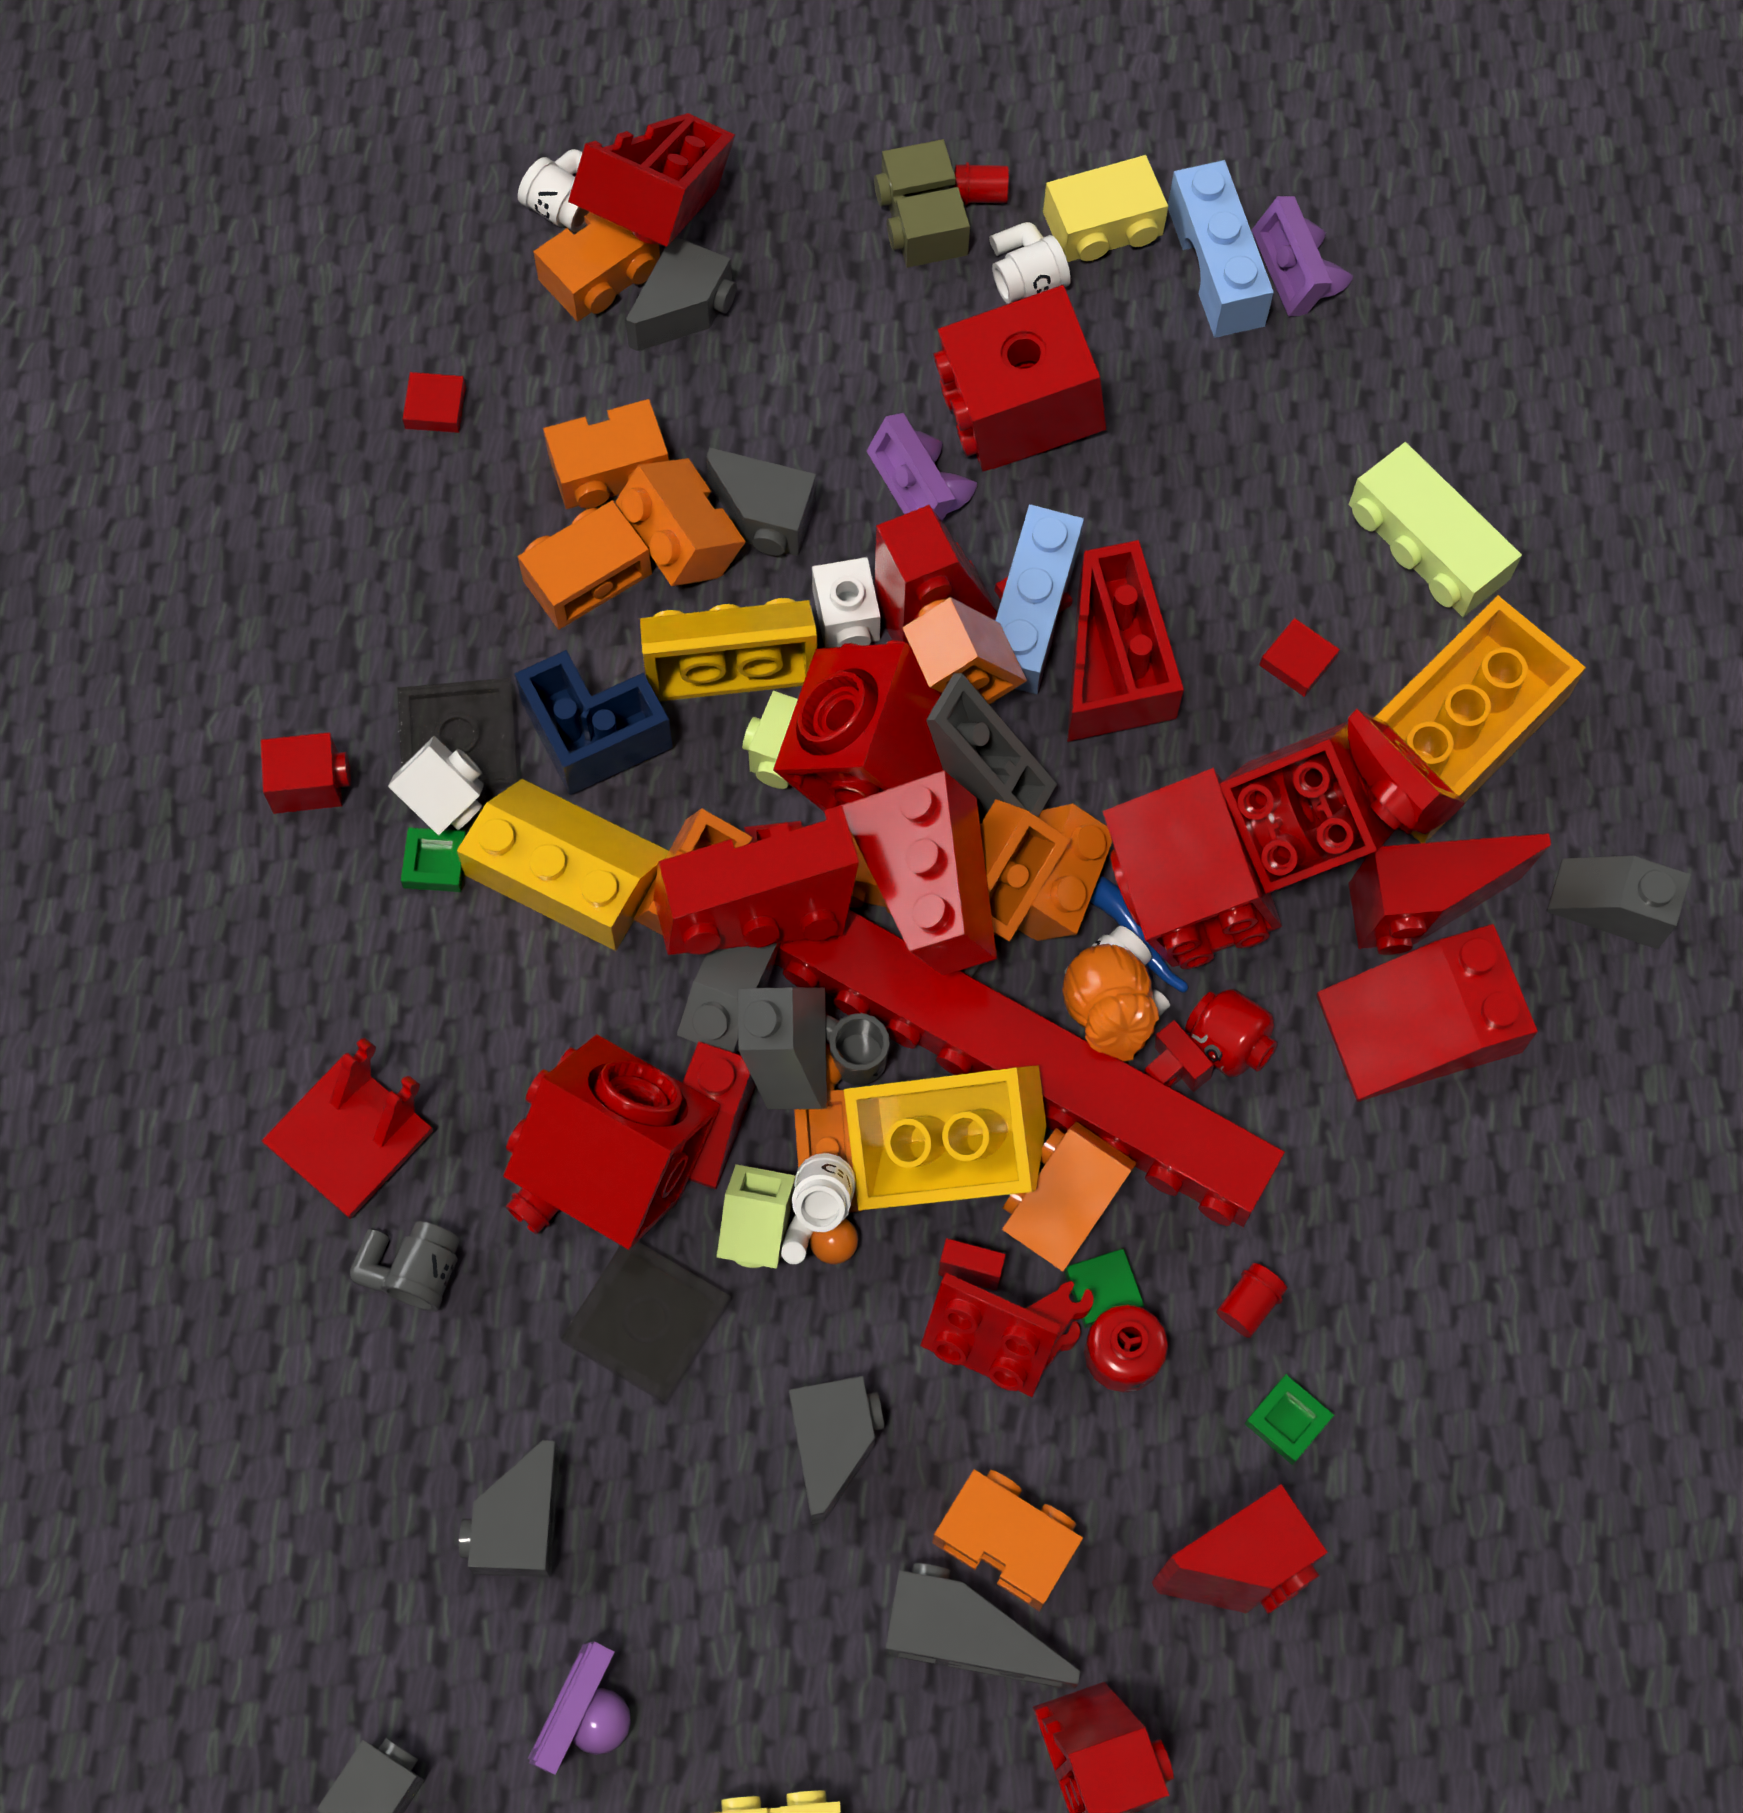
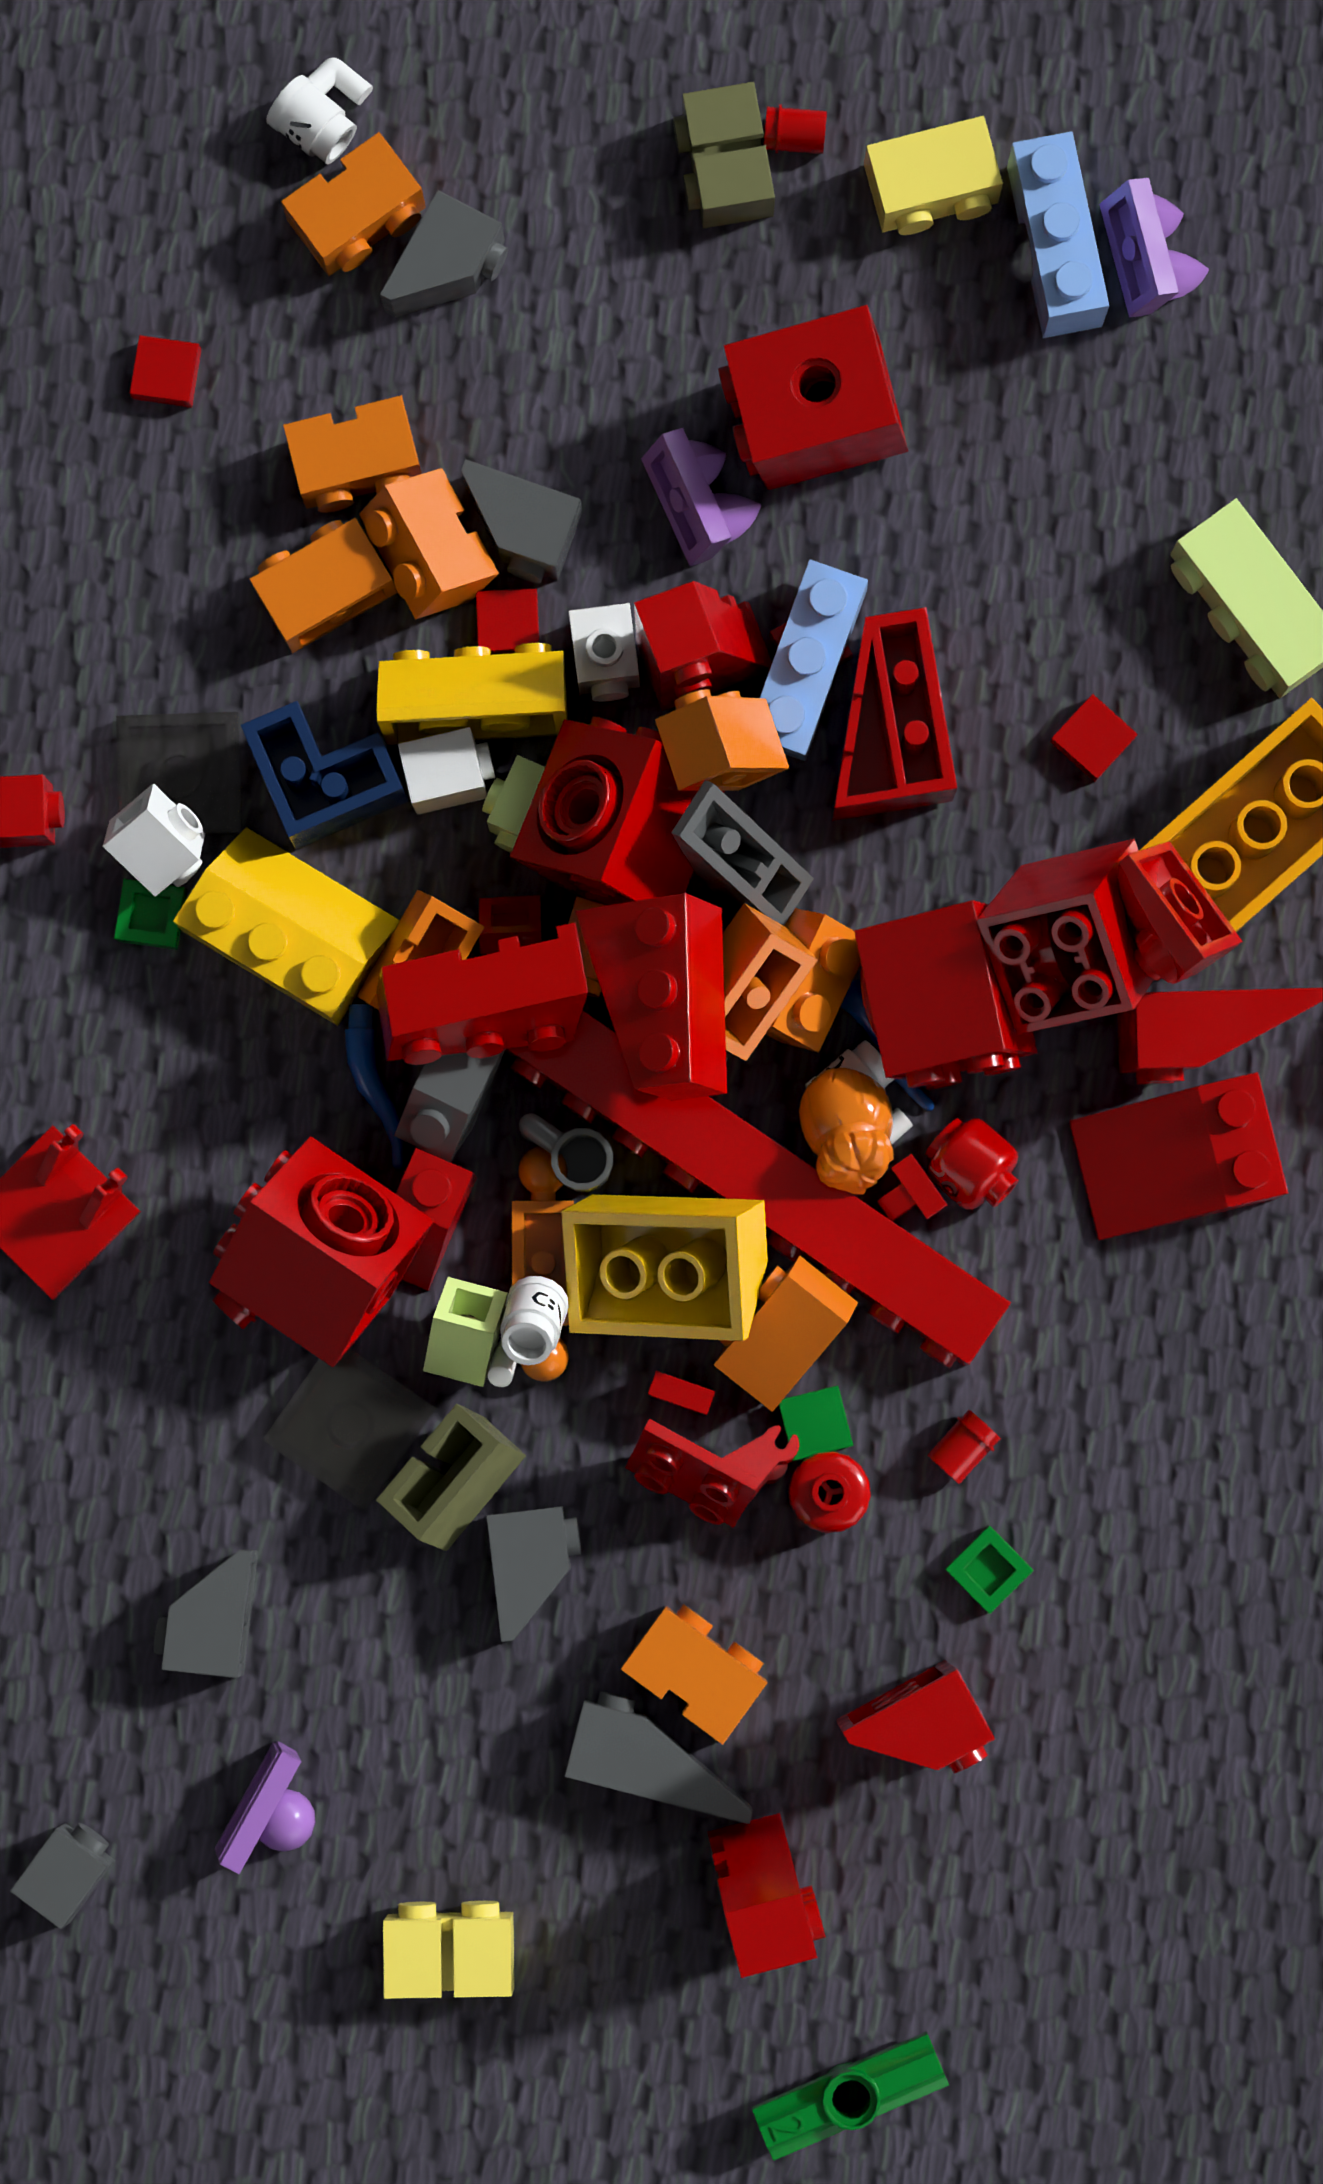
camera: 10 degrees right, 15 degrees up
(418, 1270) = (122, 1360): dark grey piece -> none
(641, 980) = (361, 1058): none -> blue animal
(653, 179) = (423, 124): red wedge -> none
(707, 711) = (446, 770): none -> white brick
(754, 582) = (507, 619): none -> red tile
(777, 1345) = (442, 1504): none -> olive piece
(785, 1045) = (504, 1156): dark grey slope -> none
(1031, 268) = (841, 246): white piece -> none

